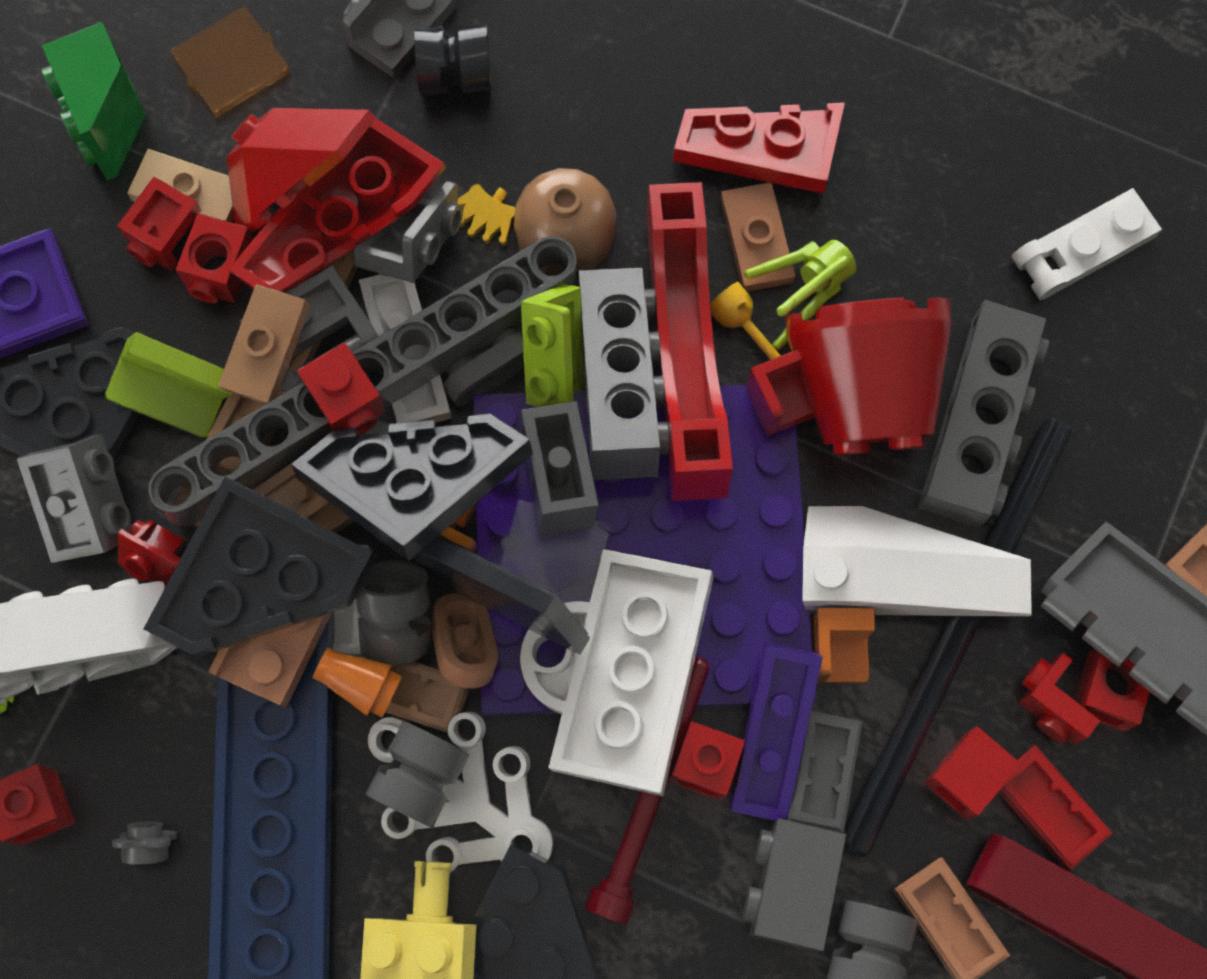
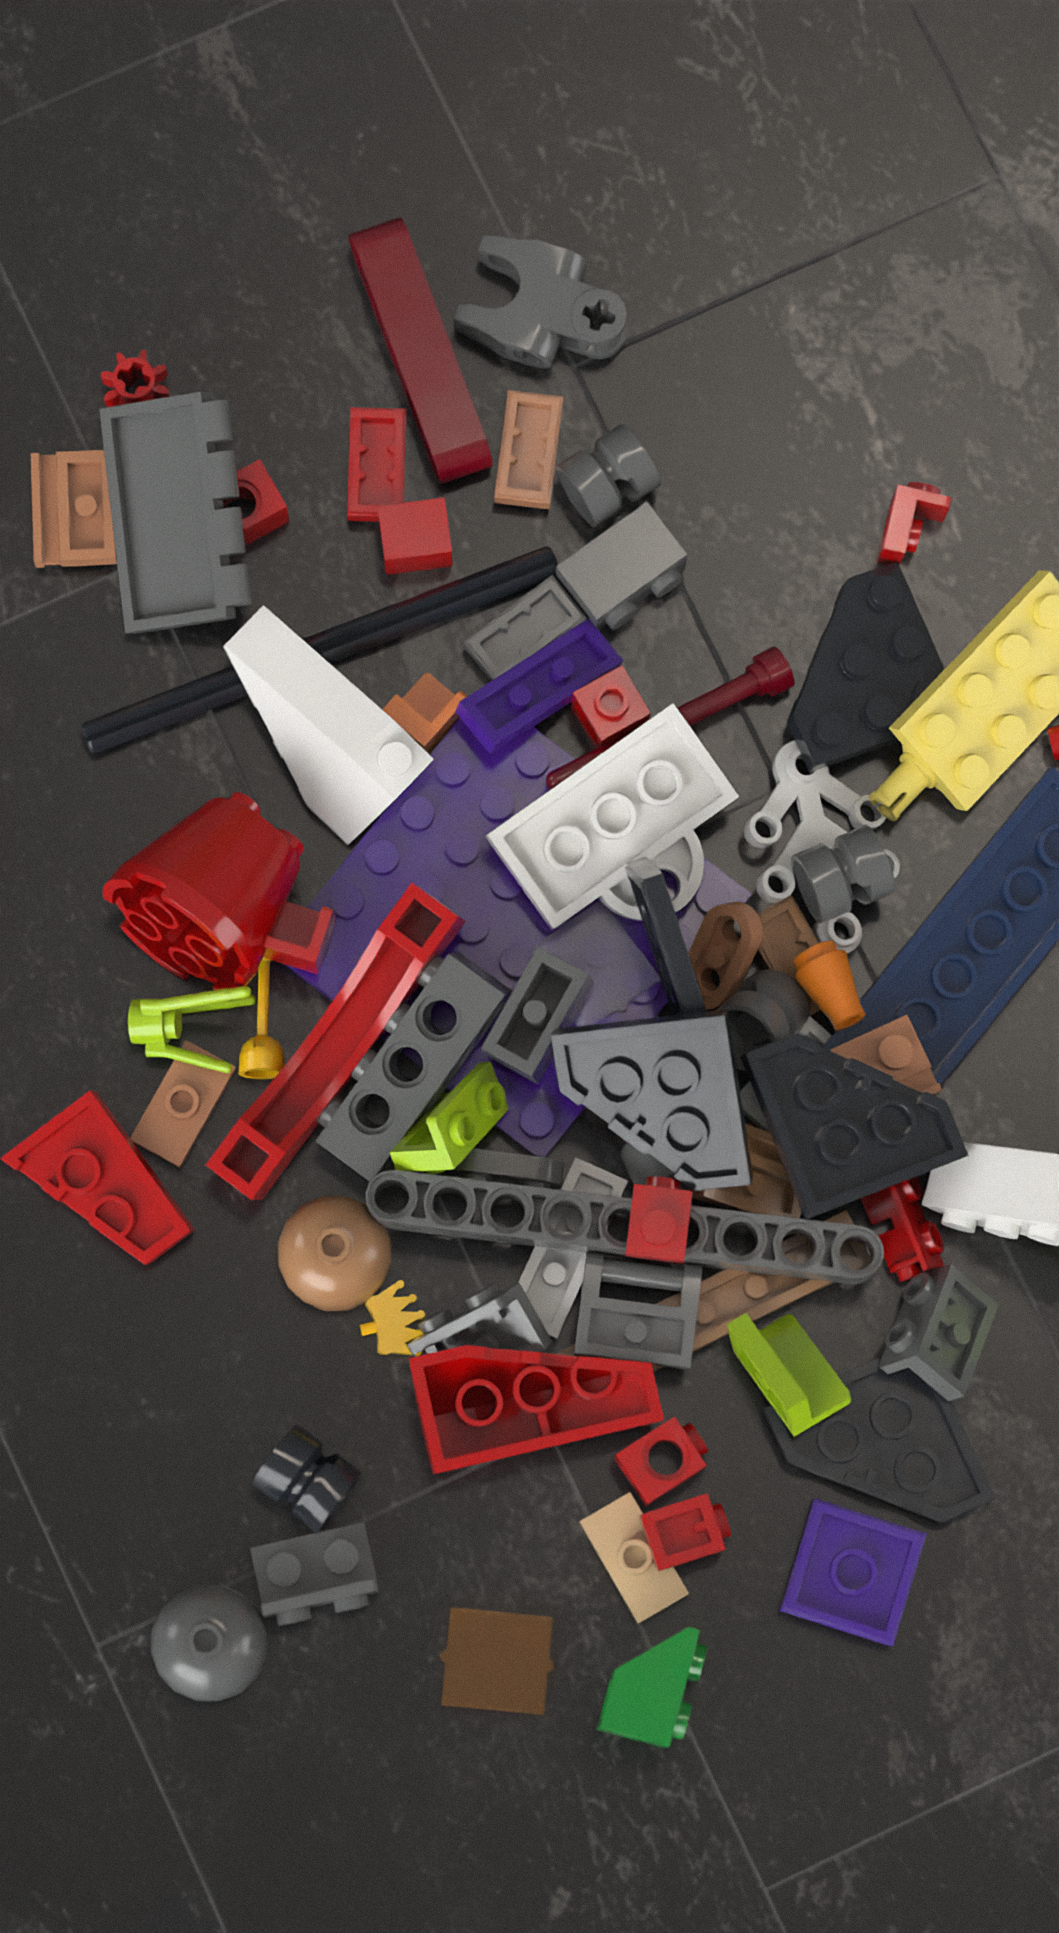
camera: 140 degrees left, 5 degrees up
(264, 344) = (688, 1319): medium nougat plate -> none
(286, 153) = (541, 1465): red wedge -> none
(949, 487) = (128, 824): dark grey brick -> none
(1057, 713) = (309, 521): red bracket -> none

